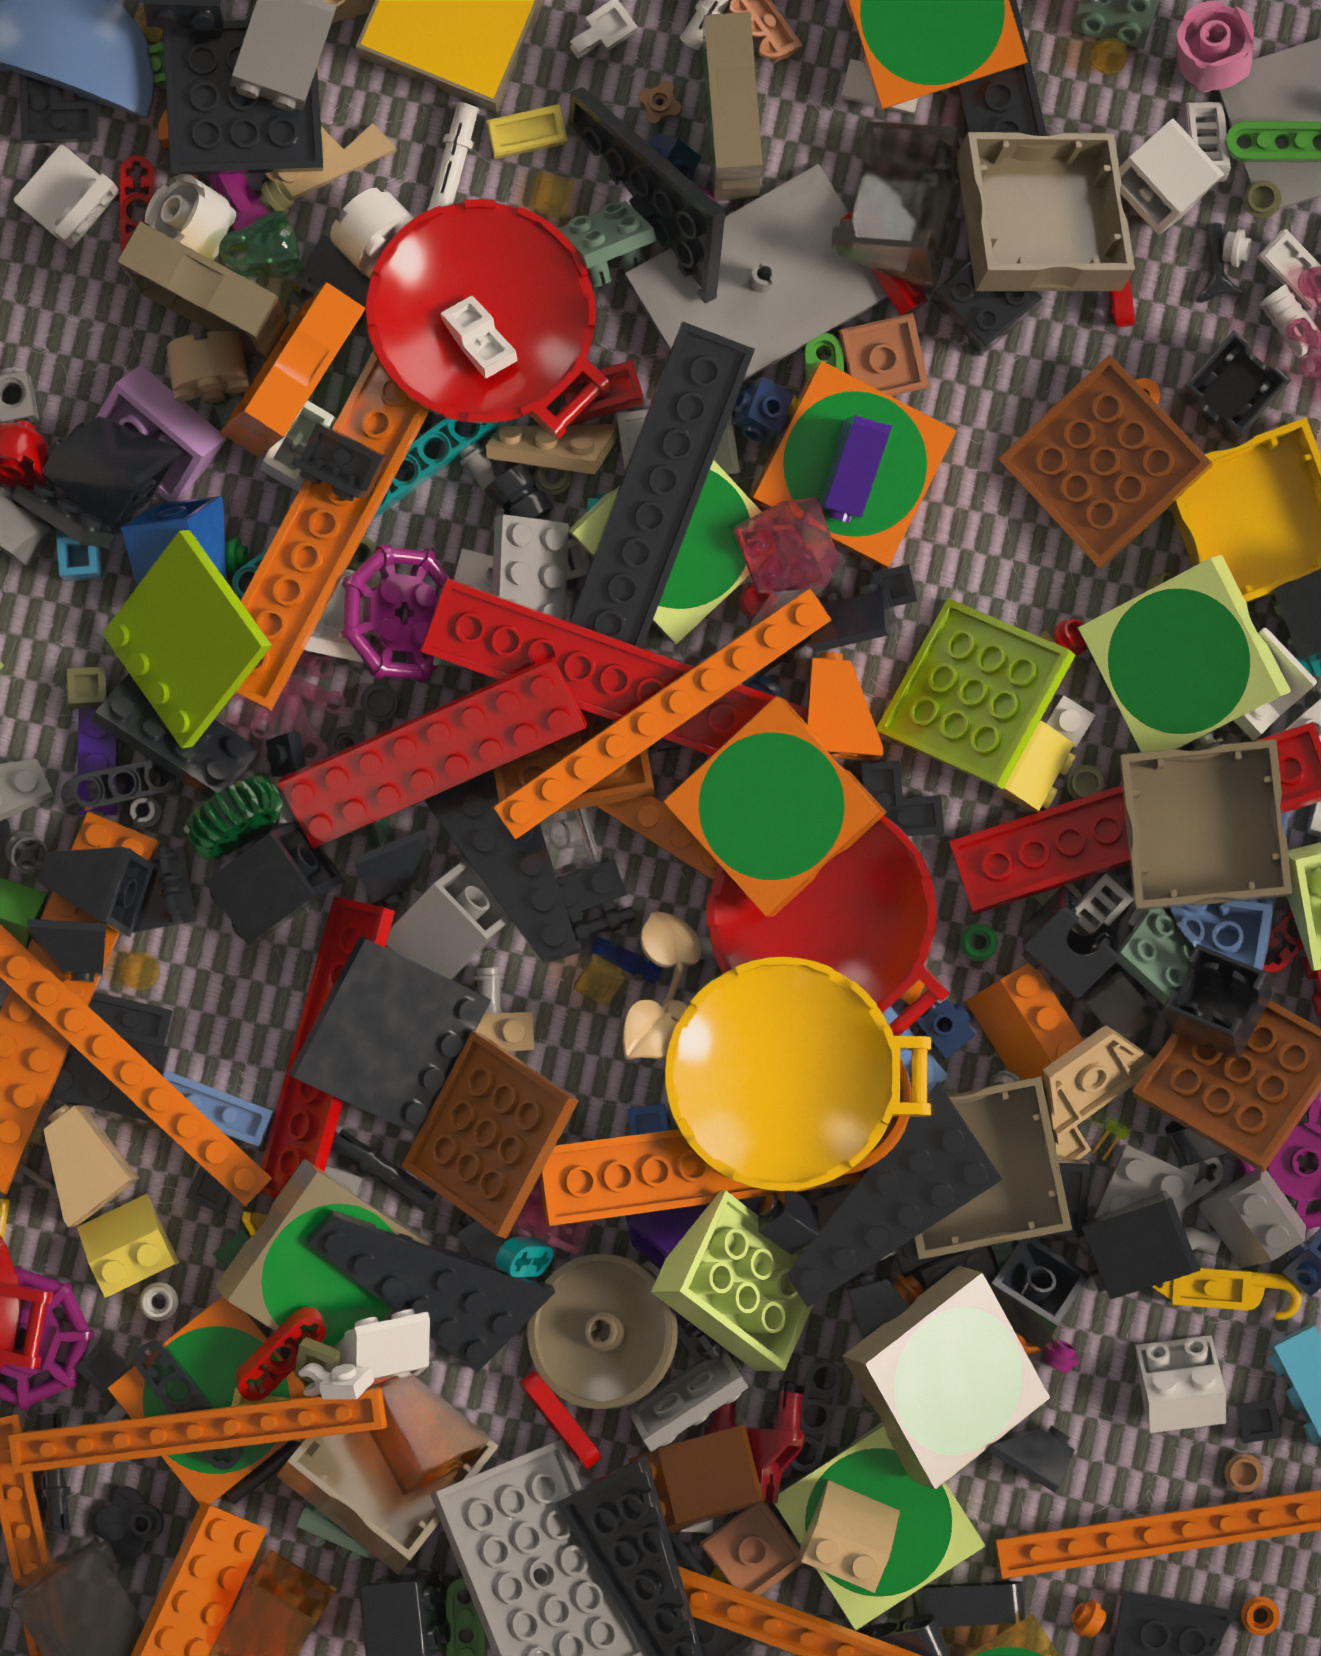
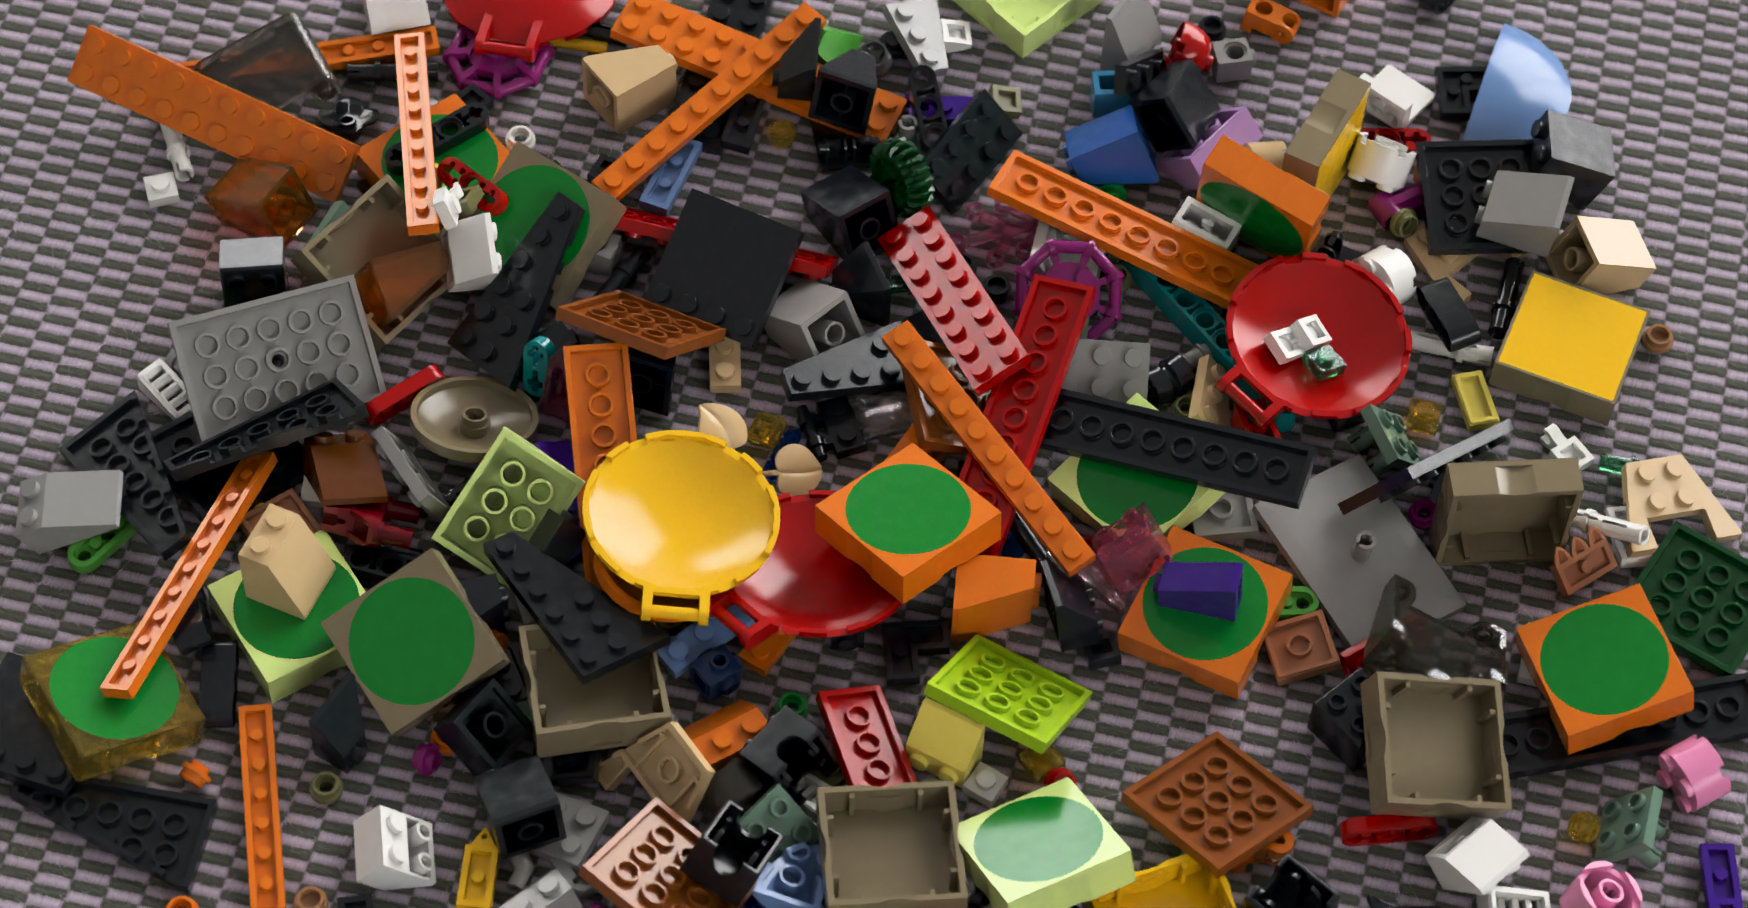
camera: 90 degrees right, 30 degrees down
(126, 1246) = (562, 119): light yellow slope -> none
(186, 639) = (1041, 137): lime plate -> none
(269, 248) = (1366, 208): clear green piece -> none
(285, 754) = (955, 222): black plate -> none
(339, 462) = (1187, 237): black bracket -> none
(389, 84) = (1505, 306): none -> black pin
(421, 153) = (1448, 314): none -> black beam
(489, 985) = (759, 356): light grey pin -> none
(507, 307) = (1323, 362): none -> clear green plate
(762, 410) = (1254, 540): dark blue brick -> none
(1108, 1474) = (323, 780): none -> olive plate
(1116, 1128) = (624, 812): clear neon green piece -> none

